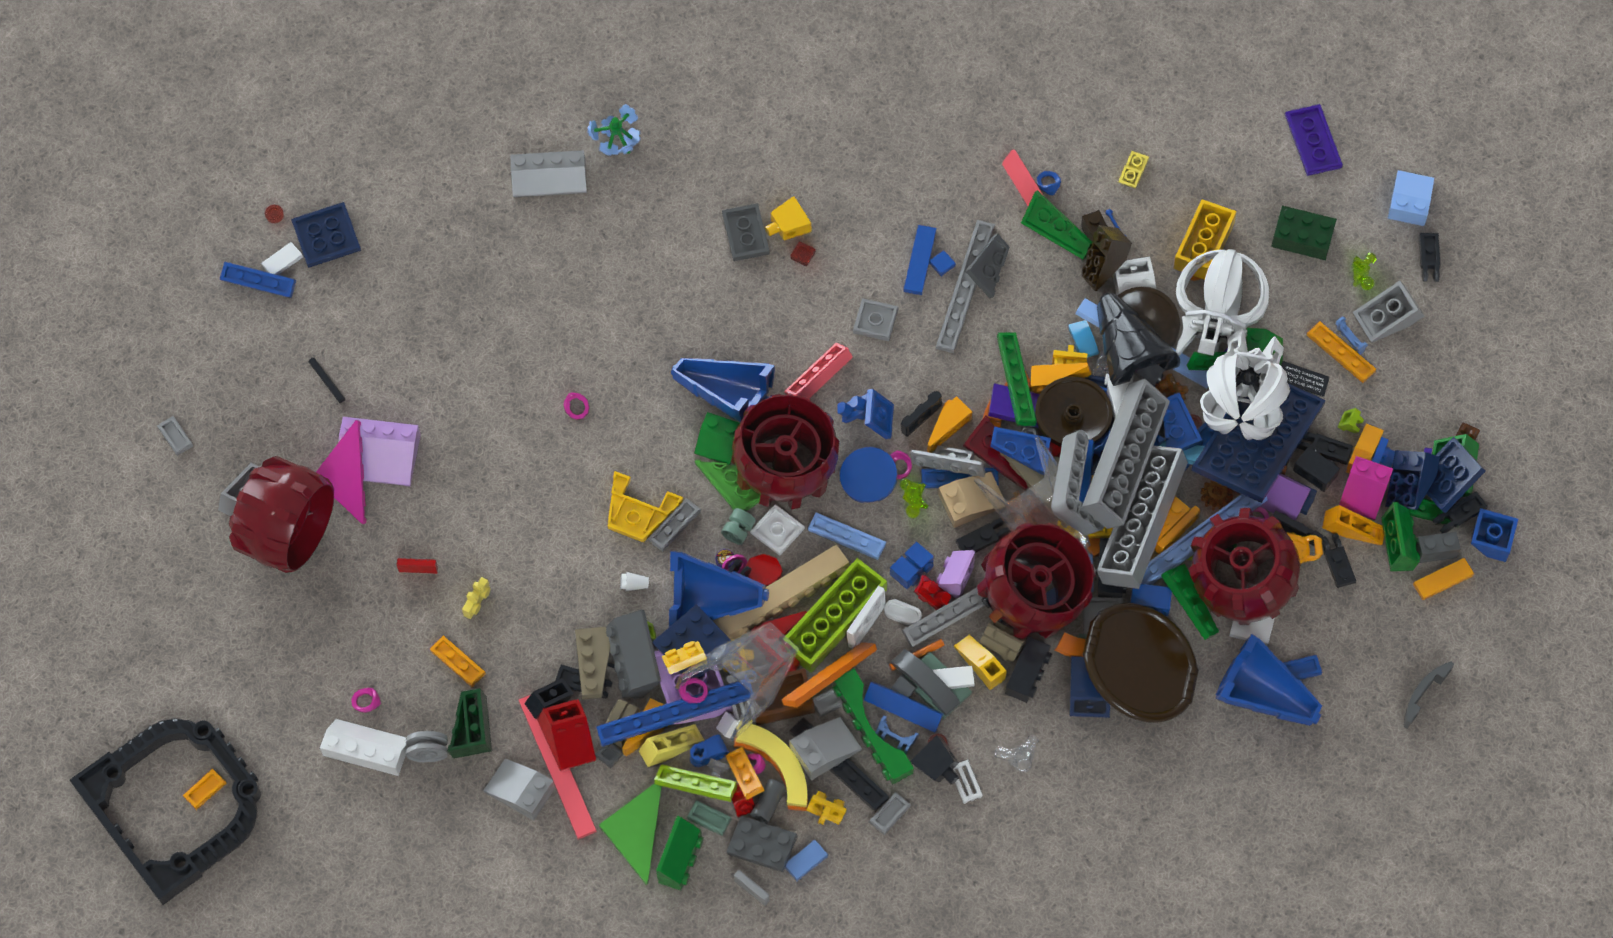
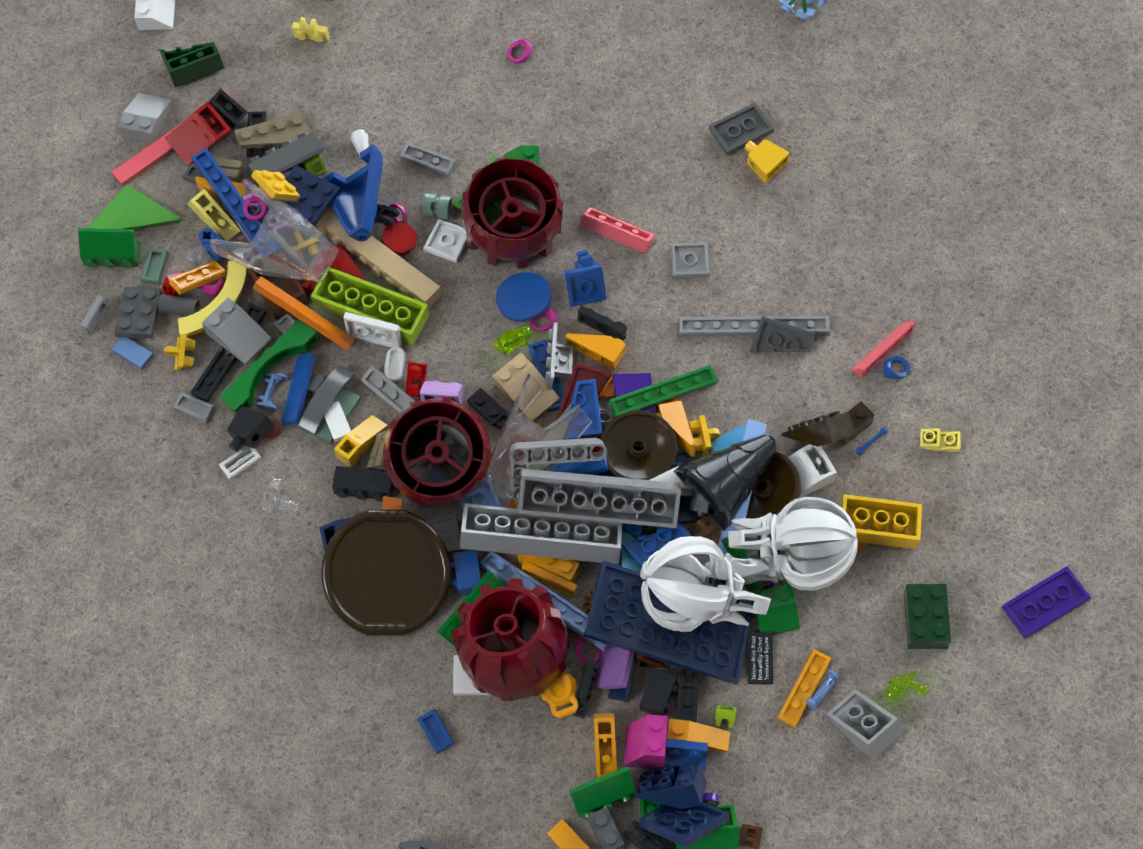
camera: 75 degrees right, 0 degrees up
(426, 746) = (160, 34): light grey wheel -> none
(457, 661) = (251, 39): light orange tile -> none
(636, 517) = (424, 124): yellow wing -> none
(695, 783) = (178, 242): lime plate -> none
(722, 555) = (408, 205): tile -> none
(725, 384) = (572, 155): blue cone -> none
(803, 253) = (736, 180): clear red plate -> none
(846, 536) = (458, 298): light blue tile -> none
(909, 569) = (446, 360): blue piece -> none
(920, 260) = (767, 279): blue tile -> none
(925, 650) = (360, 392): orange bar -> none
(942, 263) = (771, 299): blue tile -> none
(1052, 224) = (845, 379): green wing -> none
(1266, 686) = (396, 697): blue cone -> none
(1338, 562) = (563, 740): black hinge -> none
(1411, 198) = (1014, 714): light blue slope -> none
(1429, 255) = (950, 749): black hinge -> none

